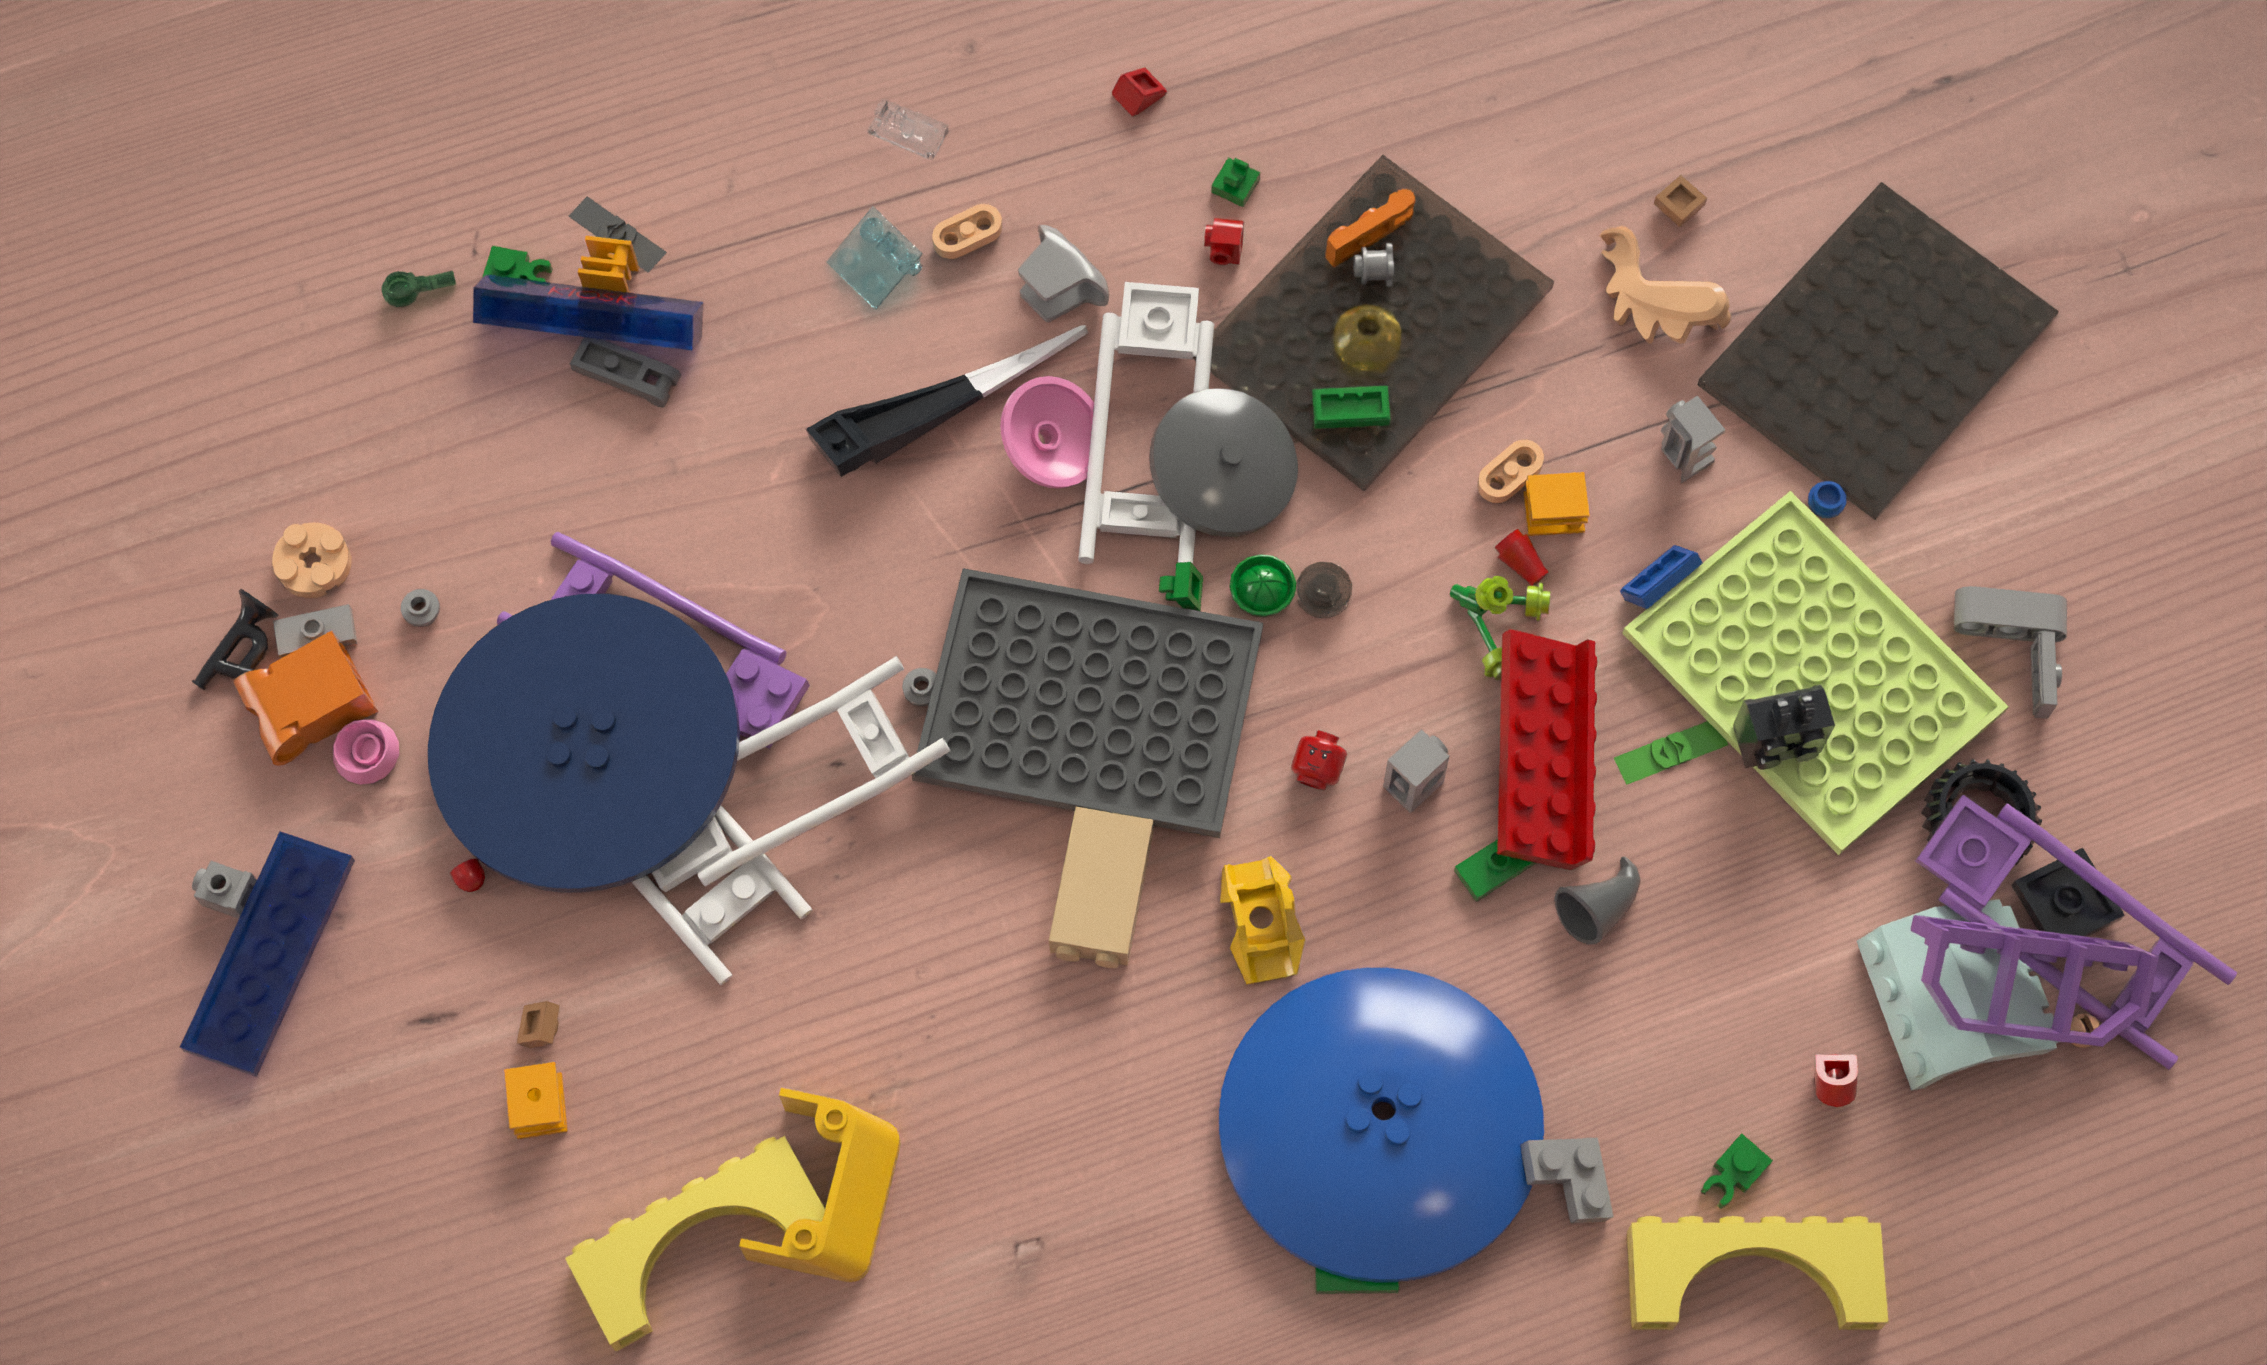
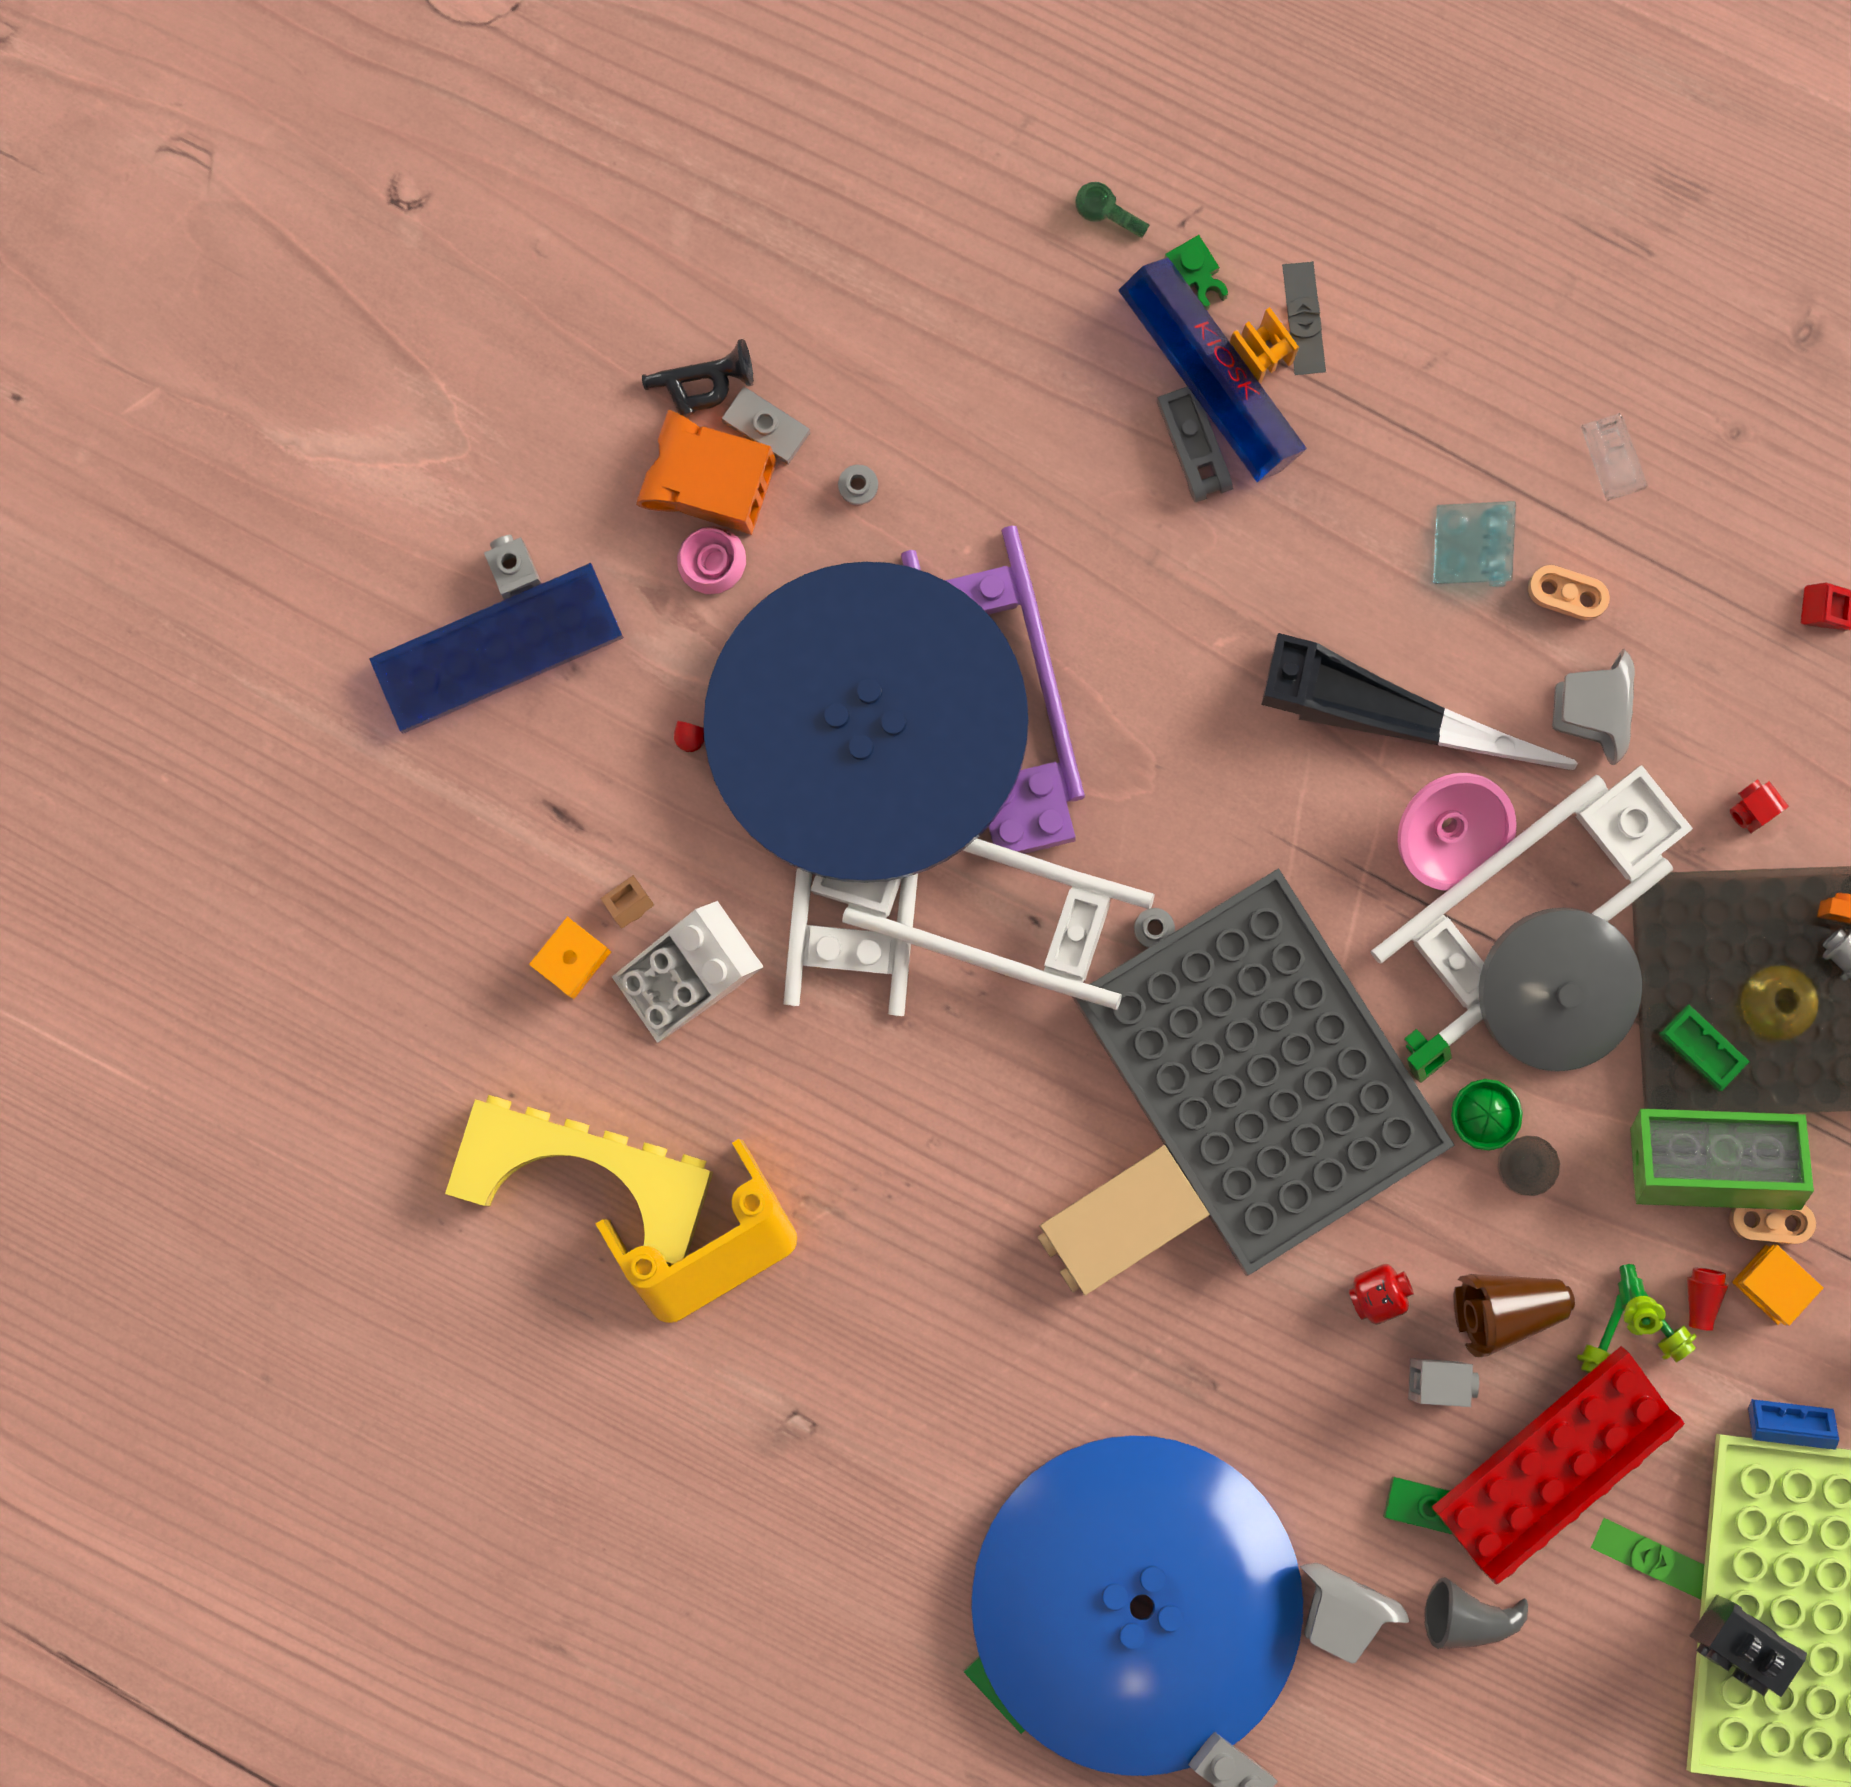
camera: 50 degrees right, 15 degrees up
(301, 541) = (819, 340): light nougat plate -> none
(628, 1029) = (687, 970): none -> white slope
(1235, 181) = (1820, 763): green tile -> none
(1268, 951) = (1204, 1399): yellow piece -> none
(1407, 687) = (1508, 1309): none -> reddish brown cone
(1436, 462) = (1721, 1159): none -> brick
(1517, 980) = (1345, 1613): none -> light grey piece

